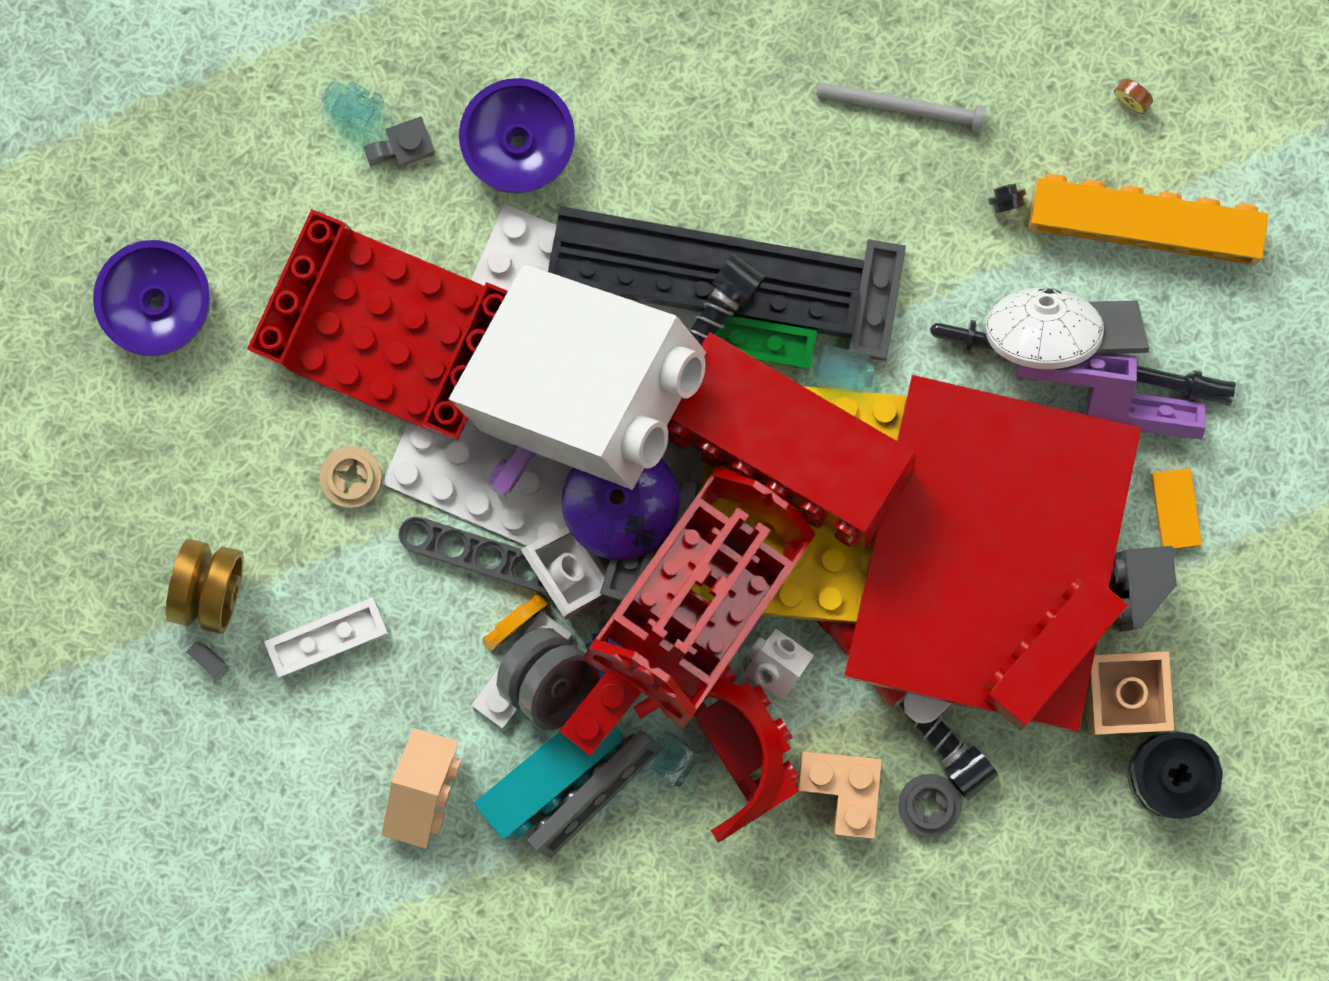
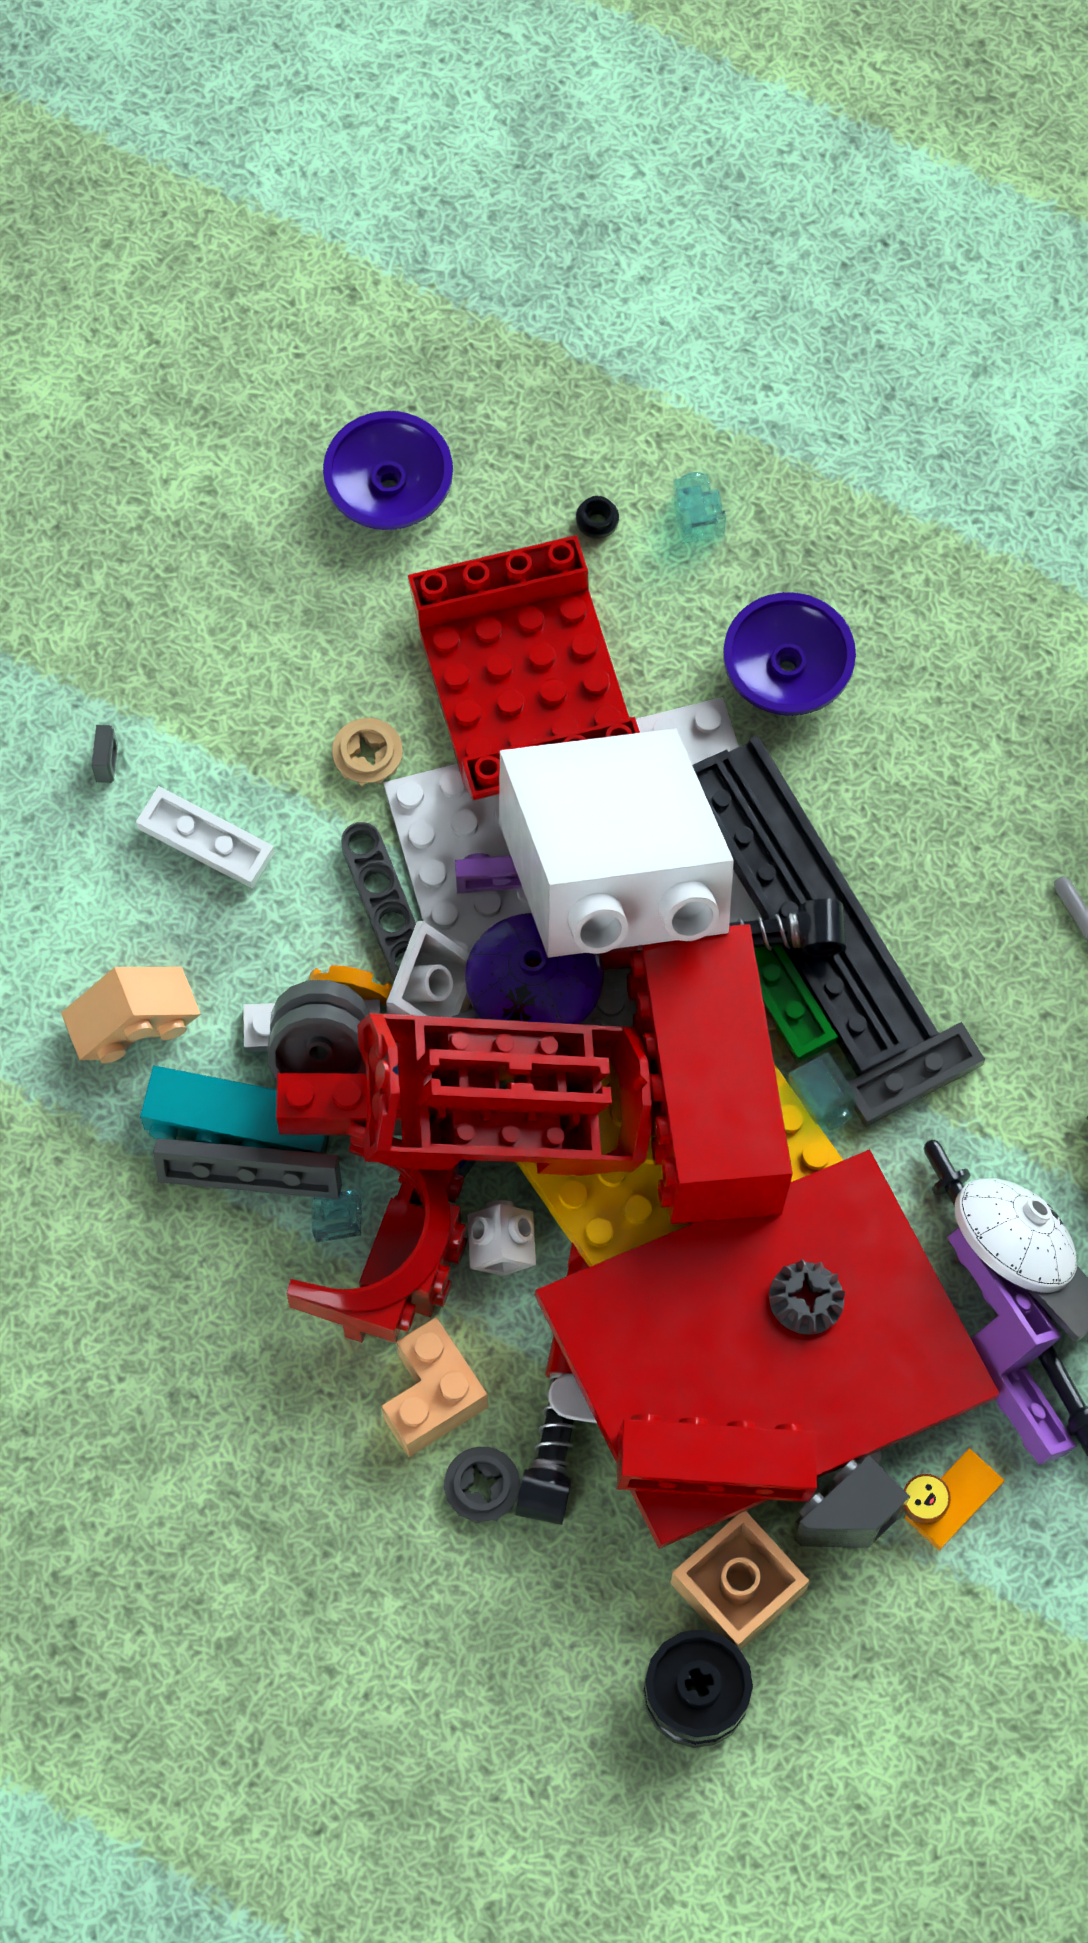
camera: 50 degrees right, 15 degrees down
(204, 586) = (167, 695): pearl gold wheel -> none
(295, 169) = (593, 506): none -> black plate
(406, 142) = (703, 577): dark grey plate -> none
(992, 518) = (793, 1311): none -> dark grey gear
(1166, 529) = (928, 1499): none -> light yellow tile

